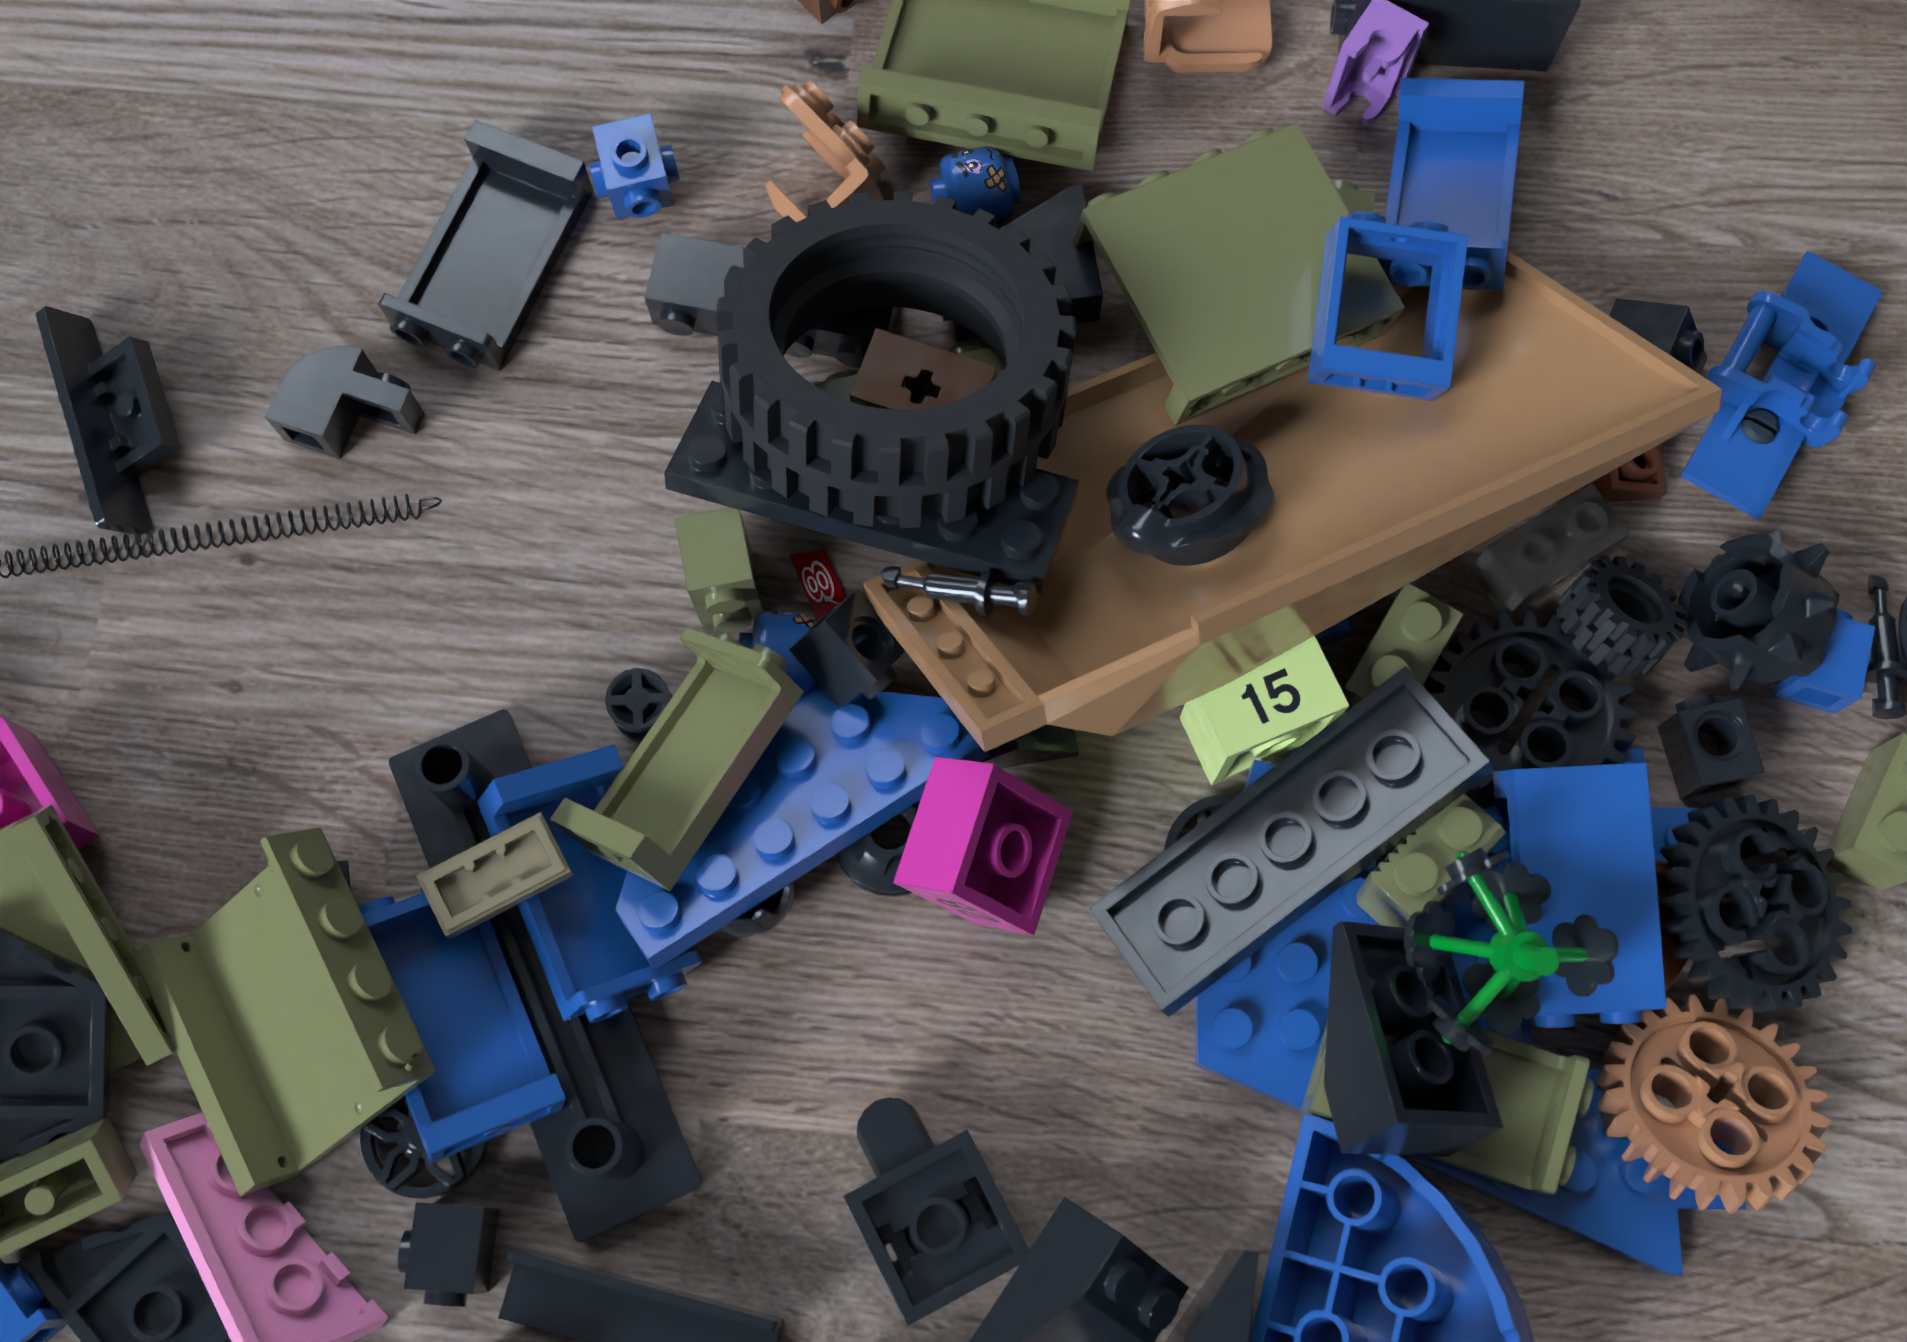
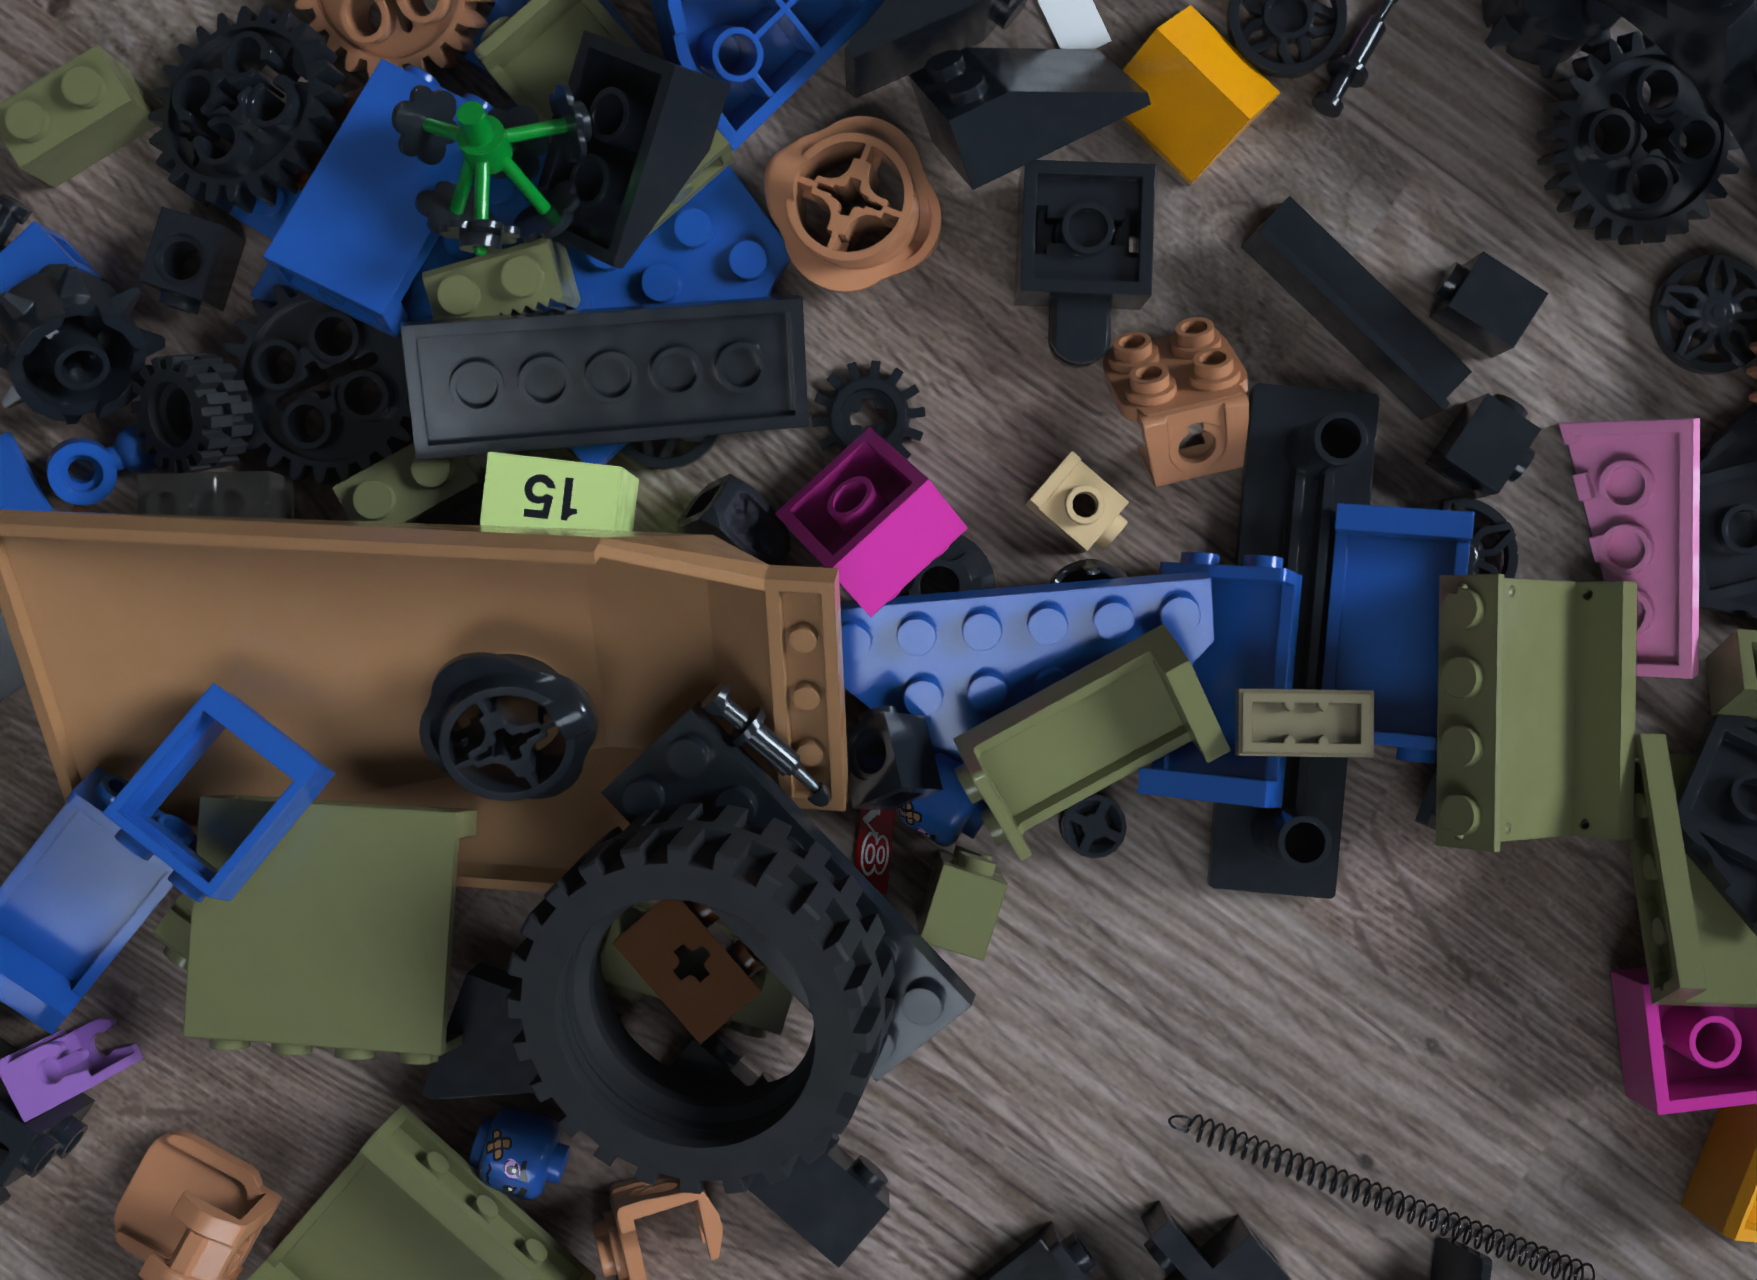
camera: 150 degrees left, 15 degrees up
(773, 1134) = (1178, 384): none -> nougat piece
(825, 992) = (1055, 505): none -> tan brick
(1036, 981) = (885, 397): none -> black gear
(1101, 783) = (739, 517): none -> rock
(1235, 1121) = (795, 177): none -> nougat piece
(1659, 523) = (107, 461): none -> blue plate

